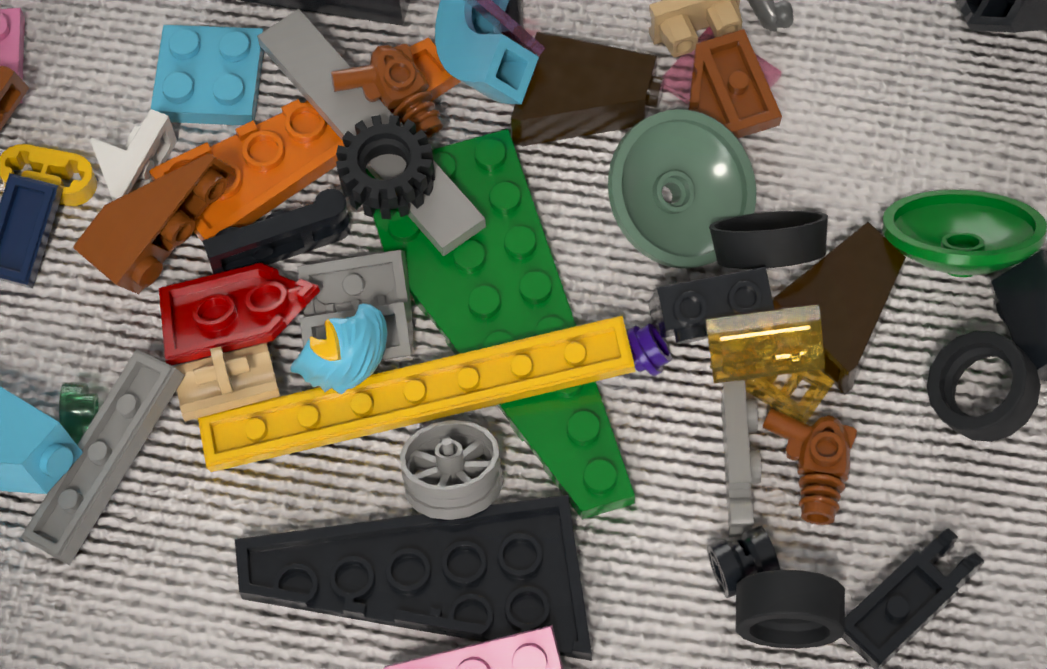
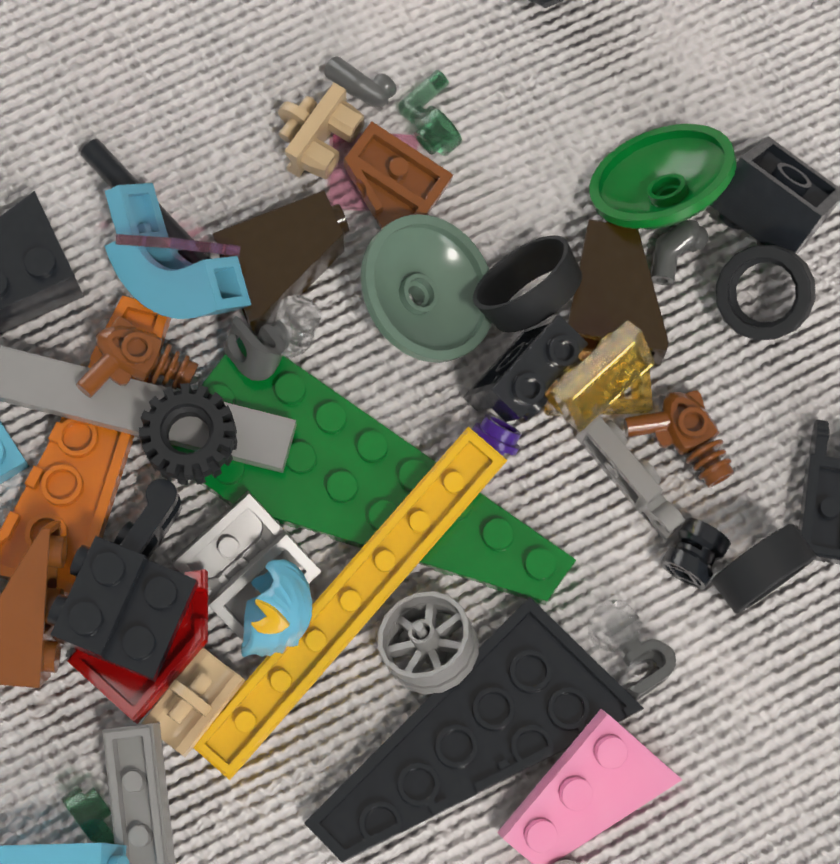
camera: 45 degrees left, 10 degrees up
(225, 263) = (121, 608): none -> black plate
(541, 153) = (288, 336): none -> leg
(623, 580) = (617, 628): none -> leg
(795, 73) = (434, 128): none -> clear green plate
(931, 299) = (673, 243): none -> dark grey arm

